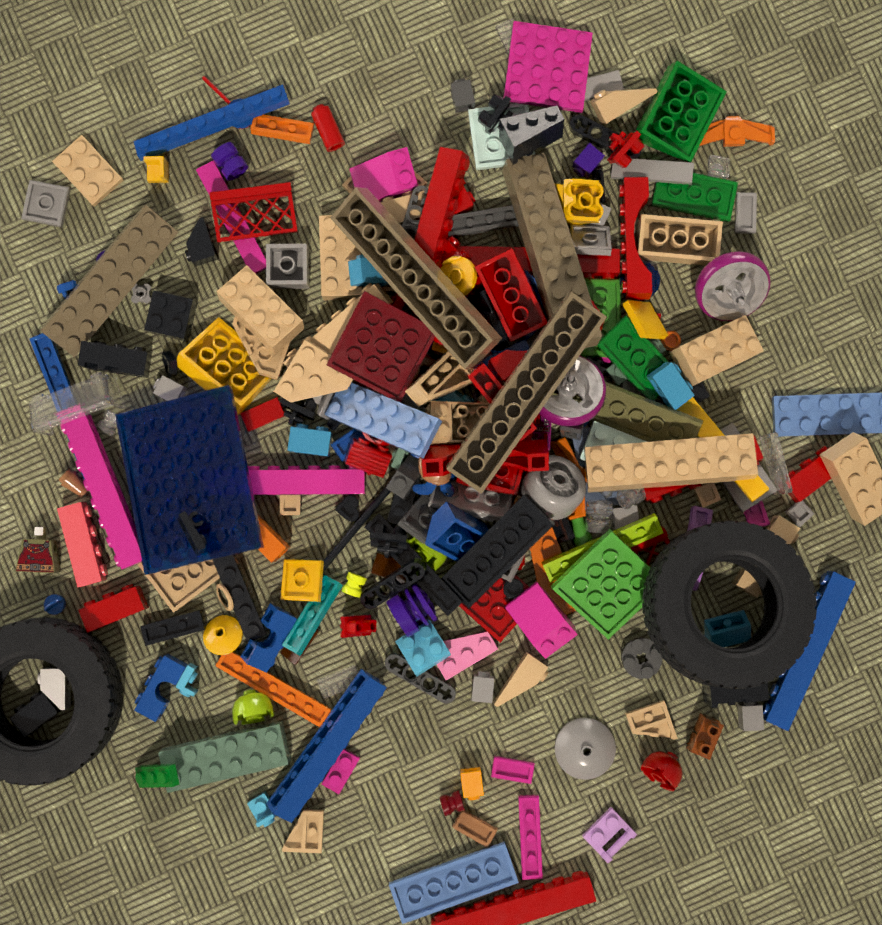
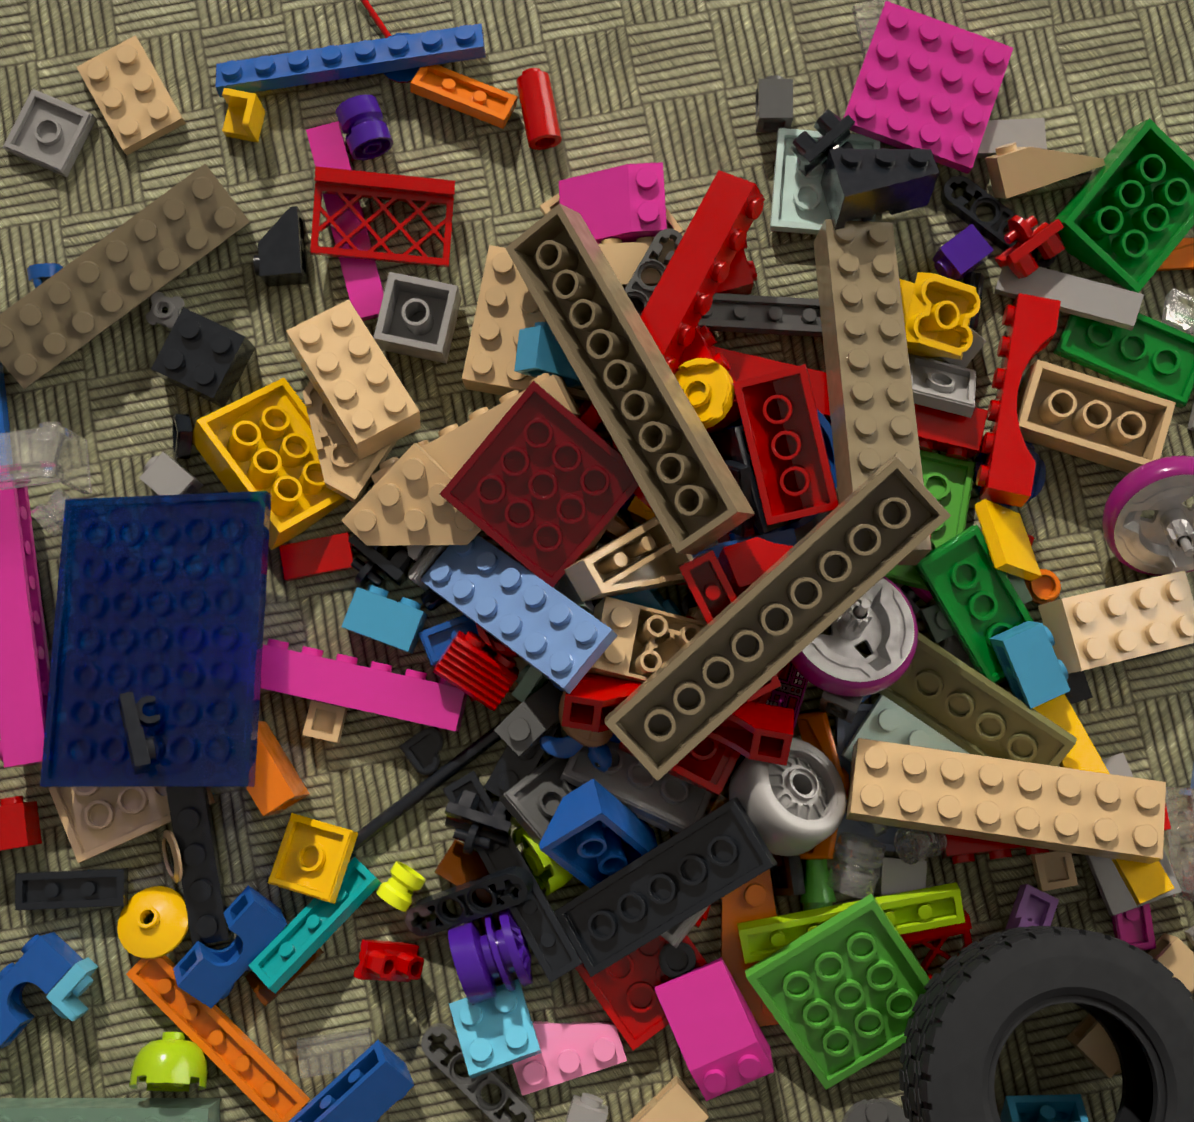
camera: 20 degrees right, 5 degrees down
(114, 359) = (90, 407): black wedge -> none

